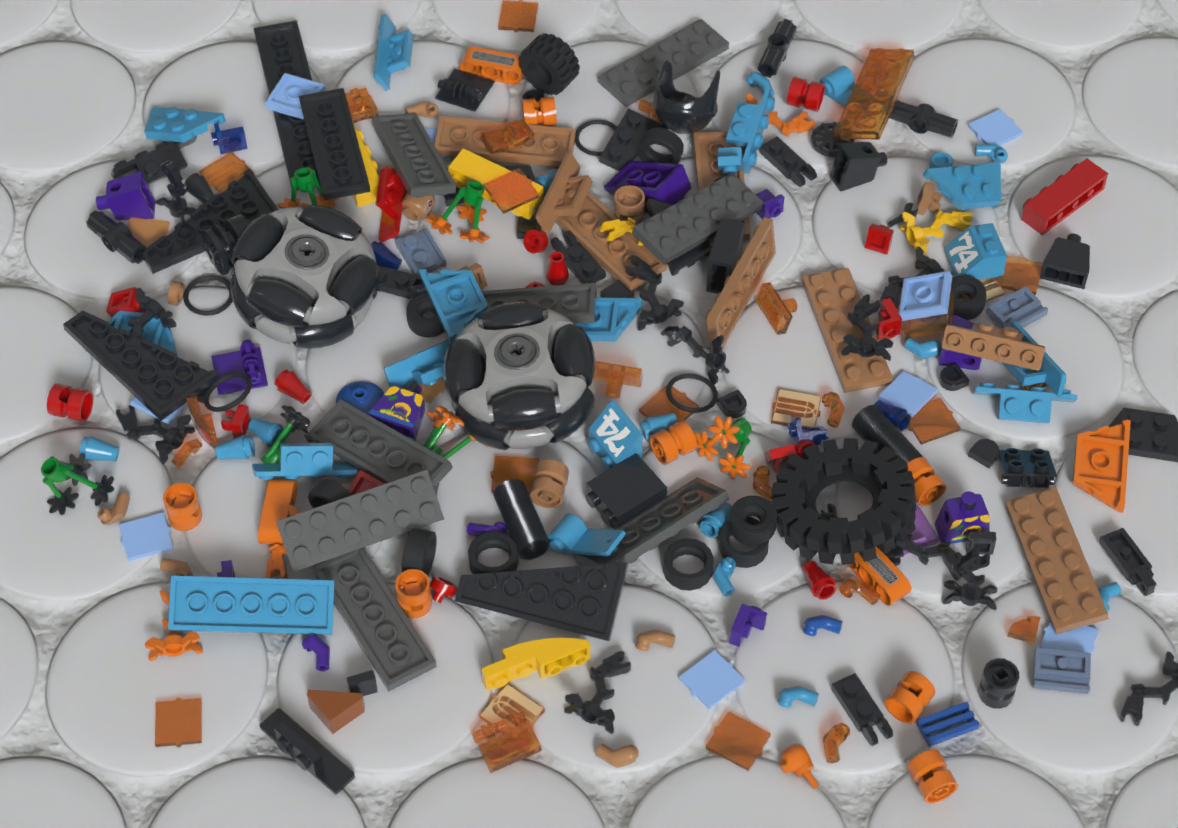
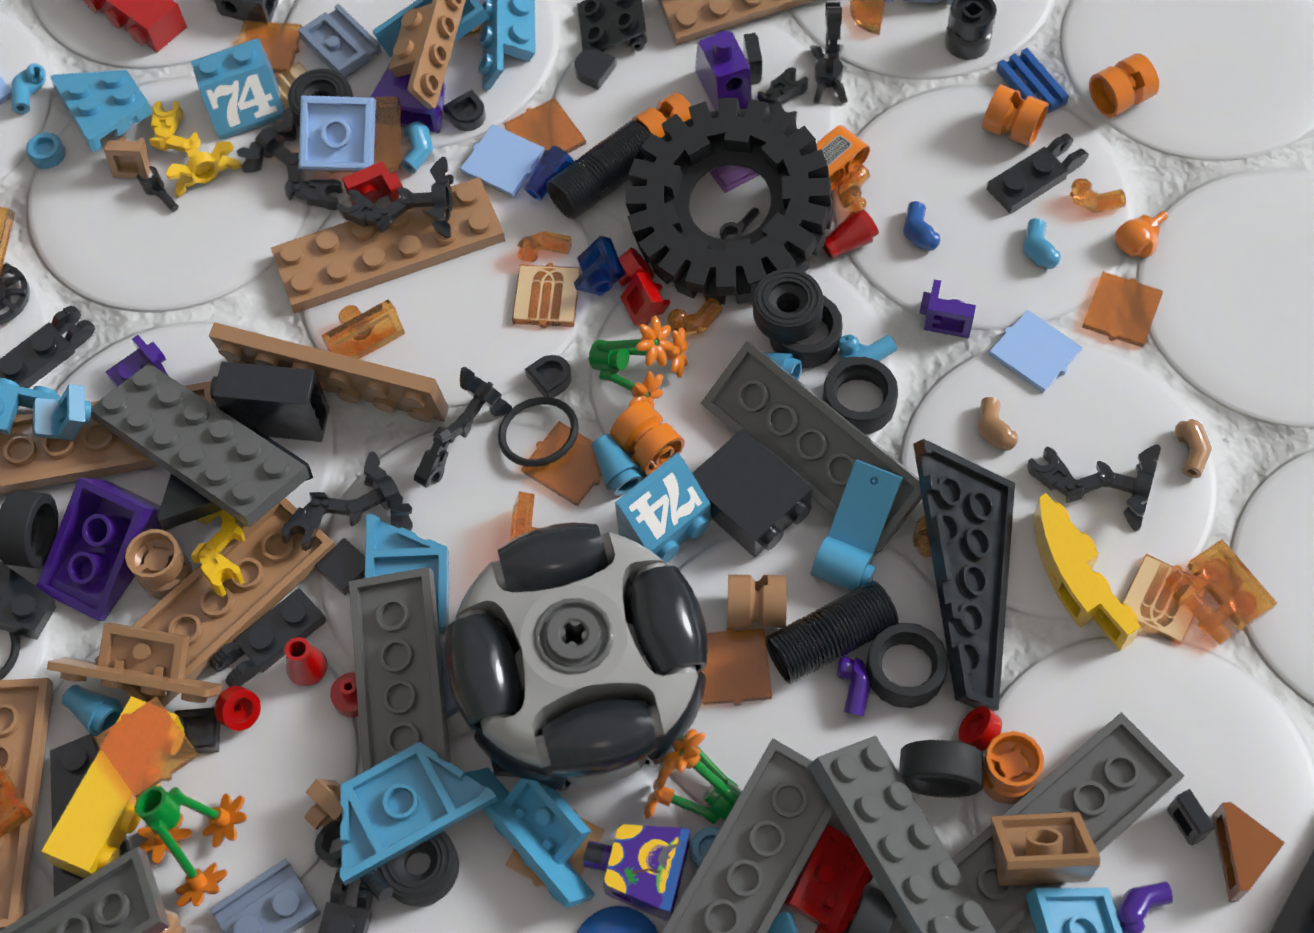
camera: 95 degrees left, 10 degrees up
(358, 592) = (1043, 849): none -> medium nougat slope
(856, 164) = (56, 235): black torso -> none
(879, 238) = (211, 209): red tile -> none

